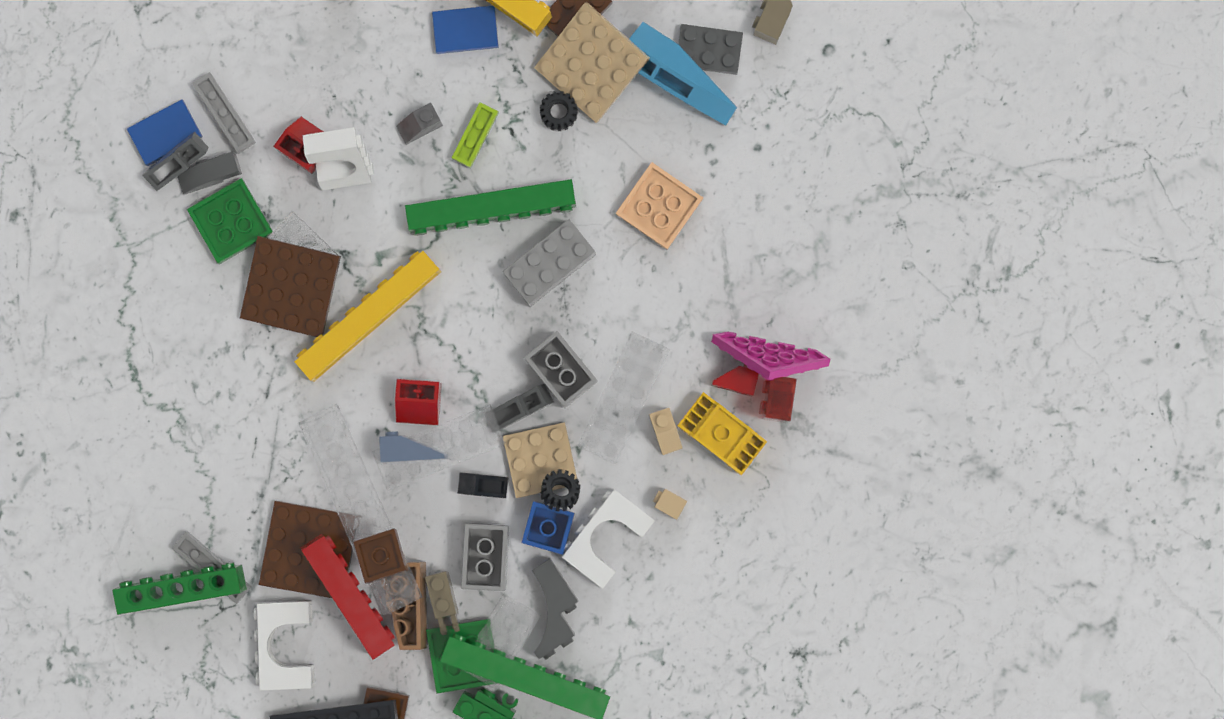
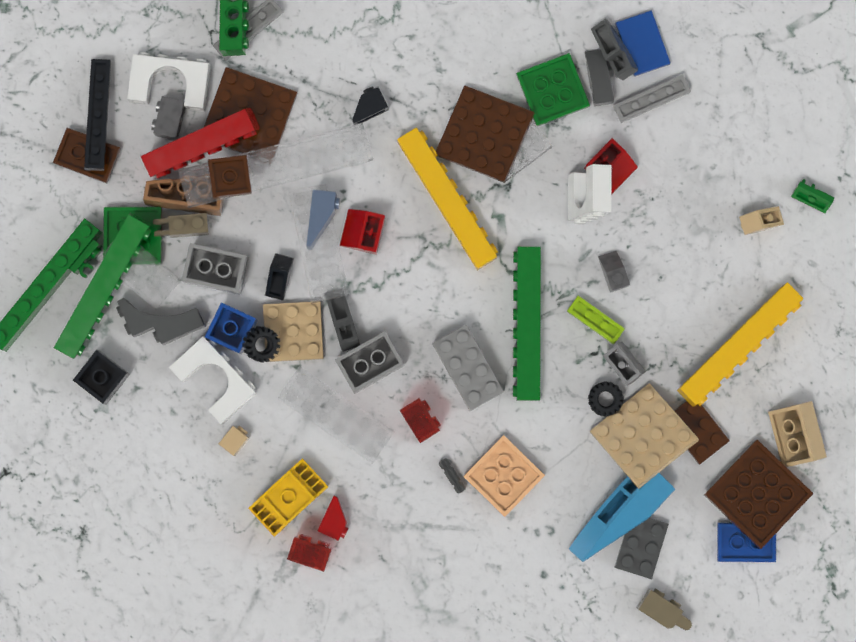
camera: 95 degrees right, 0 degrees up
(277, 417) = (369, 105): none -> black slope
(325, 637) = (169, 118): none -> flat silver brick
(465, 29) = (694, 326): blue tile -> none
(517, 96) = (624, 363): none -> flat silver brick
(615, 303) = (420, 421): none -> clear red brick
(625, 662) = (101, 377): none -> black brick
(665, 431) = (299, 447): tan slope -> none
(669, 261) = (452, 475): none -> dark grey axle
(768, 358) = (346, 551): dark pink plate -> none

